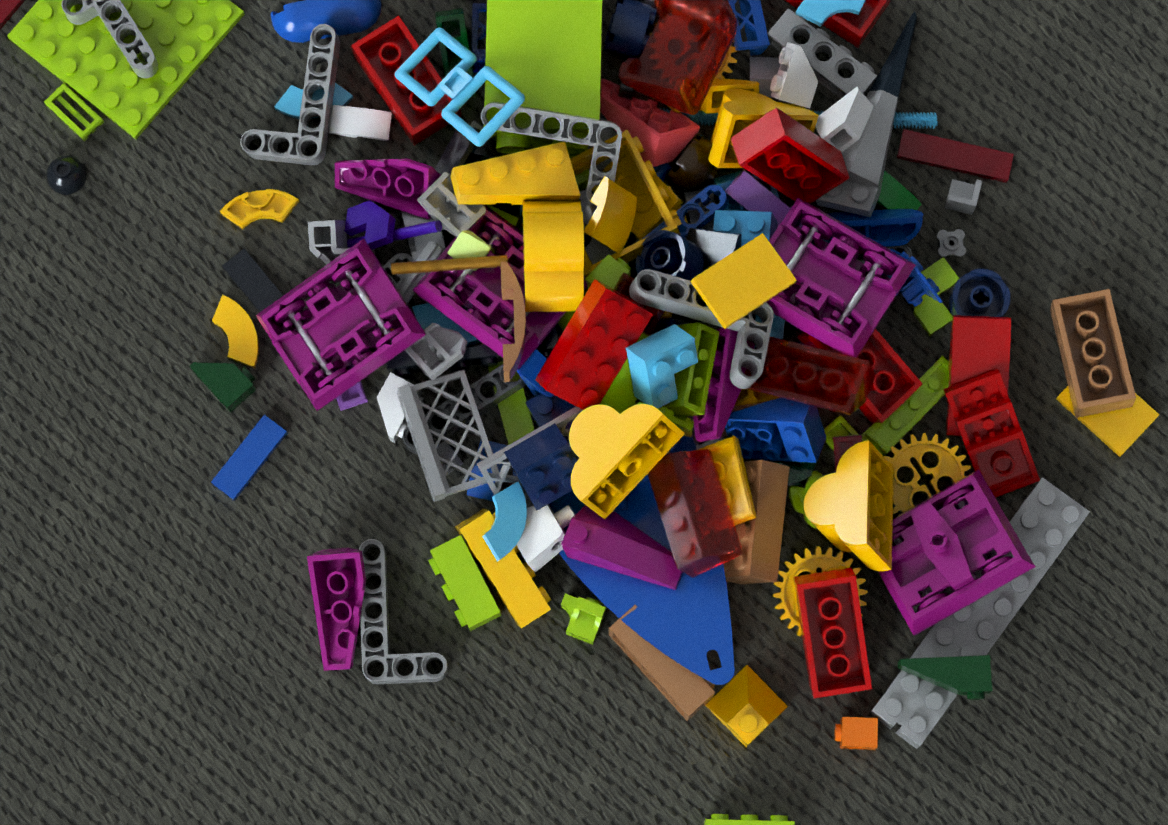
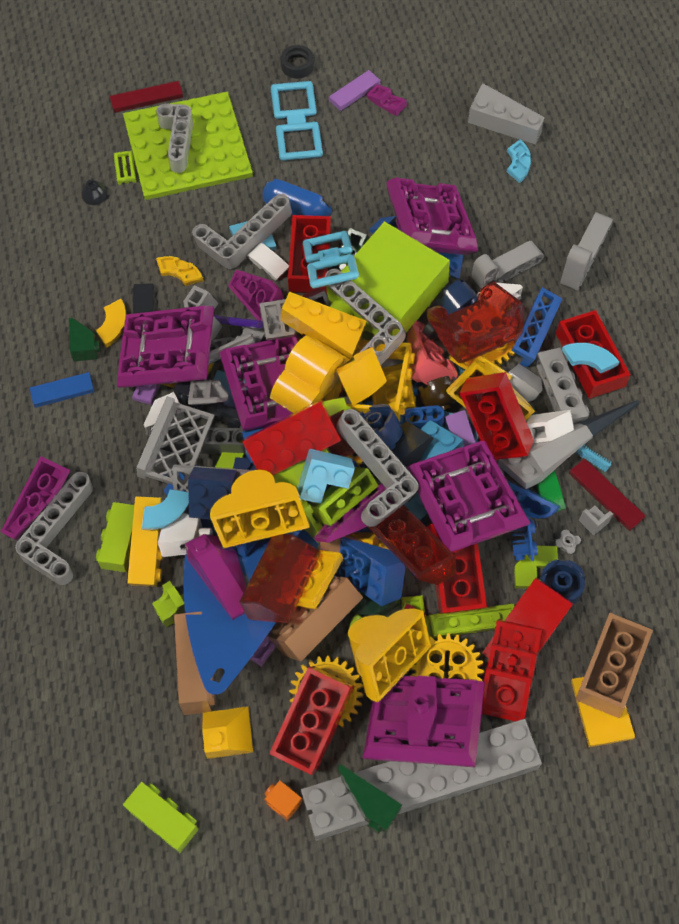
camera: 35 degrees right, 15 degrees down
(372, 219) = (227, 310): dark purple tile -> none
(448, 264) = (249, 348): pearl gold bar -> none
(468, 246) = (267, 347): yellowish green slope -> none
(512, 291) = (242, 413): medium nougat slope -> none
(743, 281) = (411, 457): yellow tile -> none
(795, 77) = (536, 385): white slope -> none

